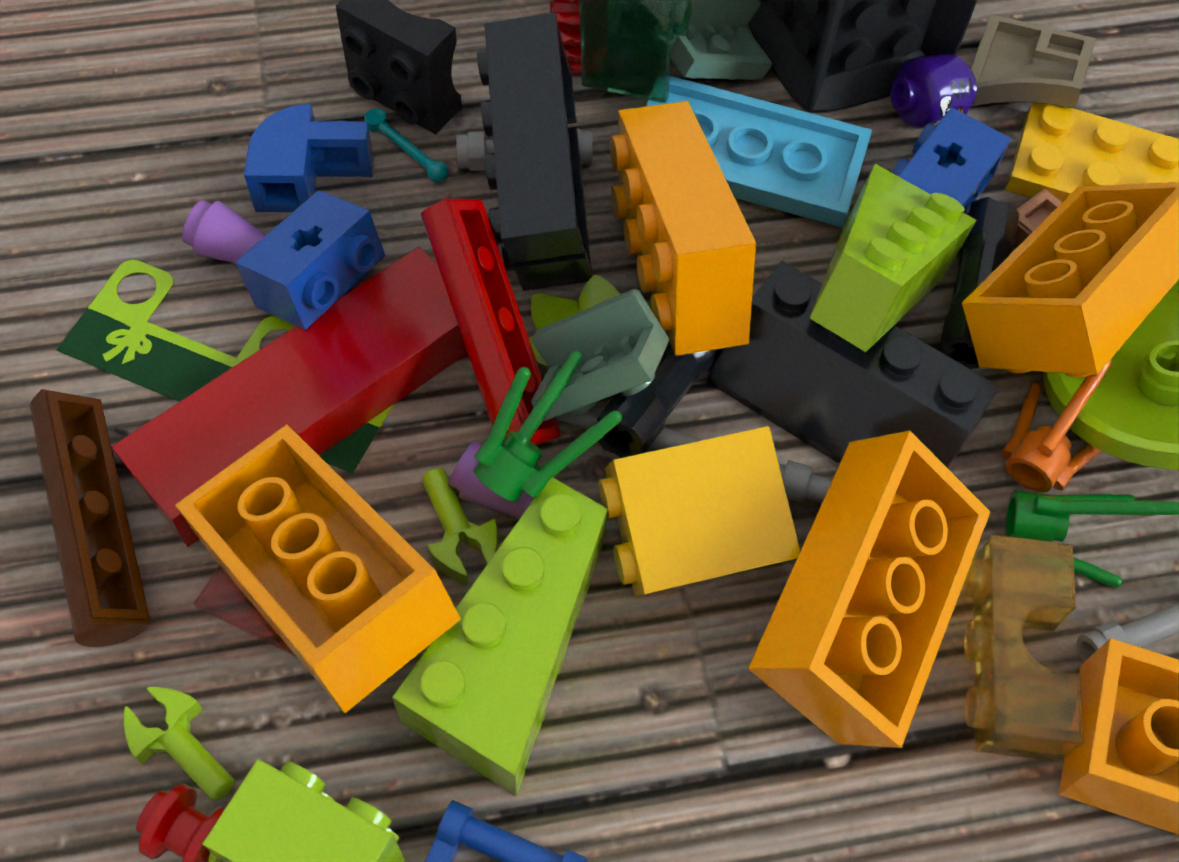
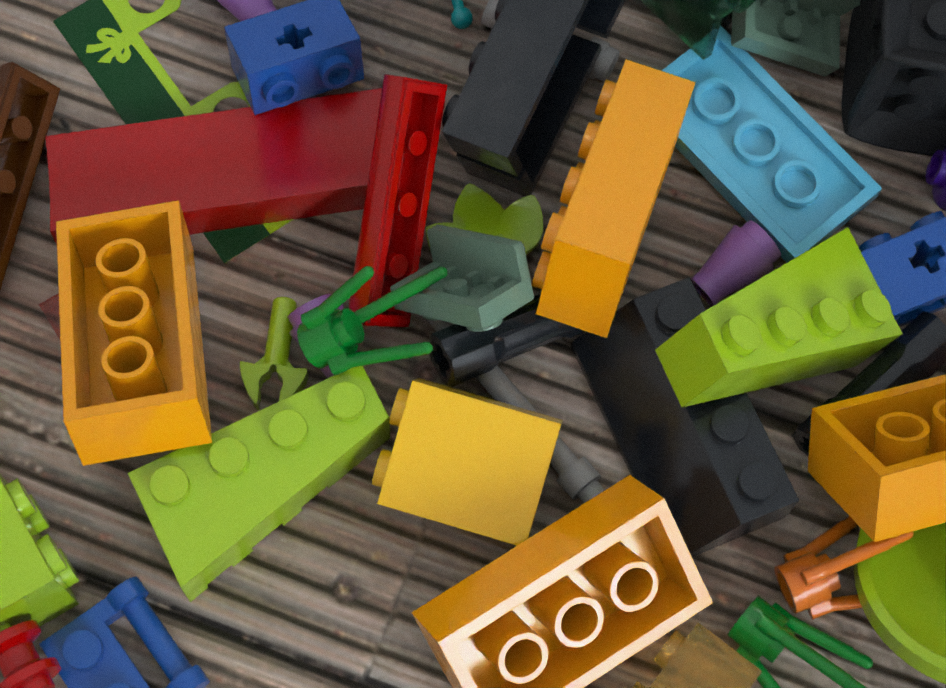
camera: 30 degrees right, 10 degrees up
(802, 234) = (736, 262): none -> medium lavender cone

